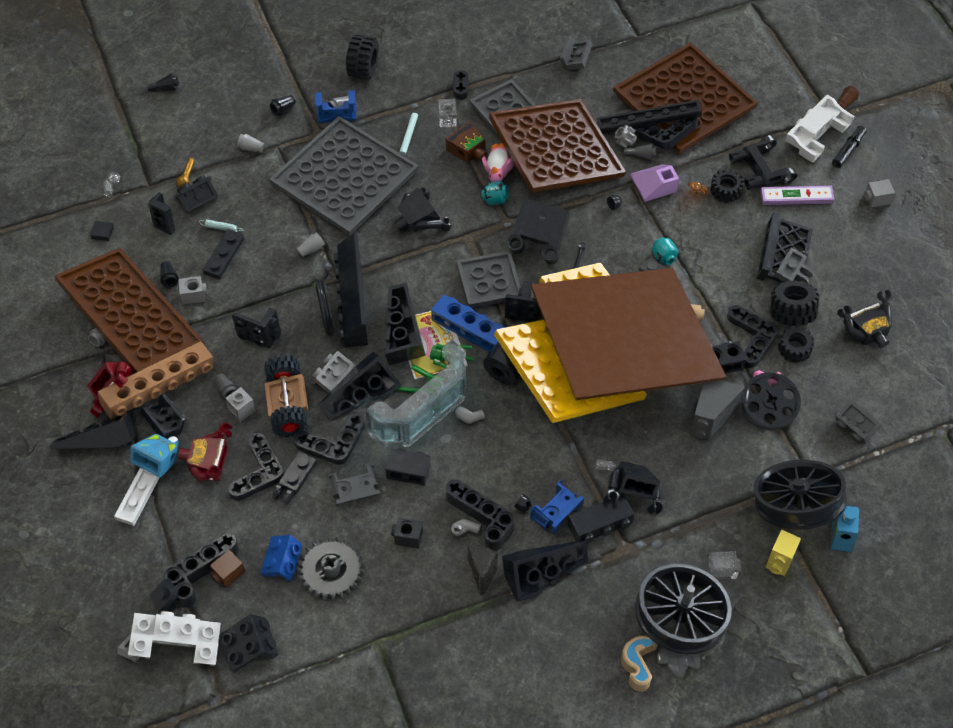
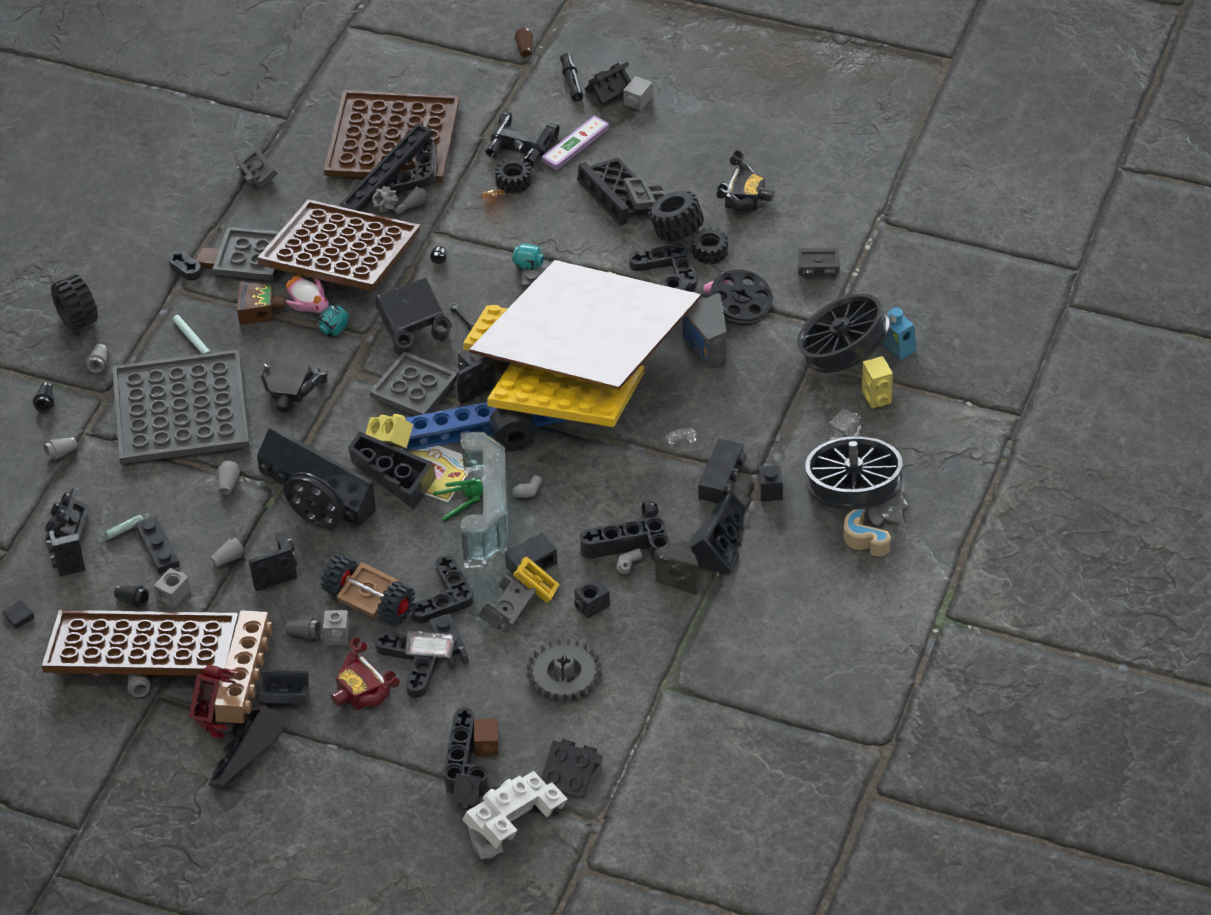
camera: 45 degrees left, 10 degrees down
(136, 497) = (341, 756): white plate -> none
(155, 454) = (319, 714): dark azure torso -> none
(184, 179) = (36, 523): pearl gold bar -> none
(250, 295) = (228, 552): none -> light grey cone
(274, 469) = (429, 644): none -> clear slope
(281, 557) = (515, 696): blue bracket -> none
(328, 114) = (97, 372): blue piece -> none
(333, 371) = (378, 546): light grey bracket -> none
(364, 384) = (416, 534): black wedge -> none
(384, 469) = (535, 581): none -> yellow tile
(426, 298) = (392, 429): none -> light yellow brick
(436, 354) = (449, 465): green plant -> none
(447, 113) = (206, 293): clear brick -> none
(478, 88) = (207, 257): none -> tile
(557, 509) = (683, 489): blue piece -> none
(625, 557) = (770, 482): none -> black slope
(636, 481) = (718, 422): black torso -> none
(656, 181) = (454, 212): lavender slope -> none
(815, 124) = (526, 82): white bracket -> none
(866, 171) = (609, 83): none -> black bracket

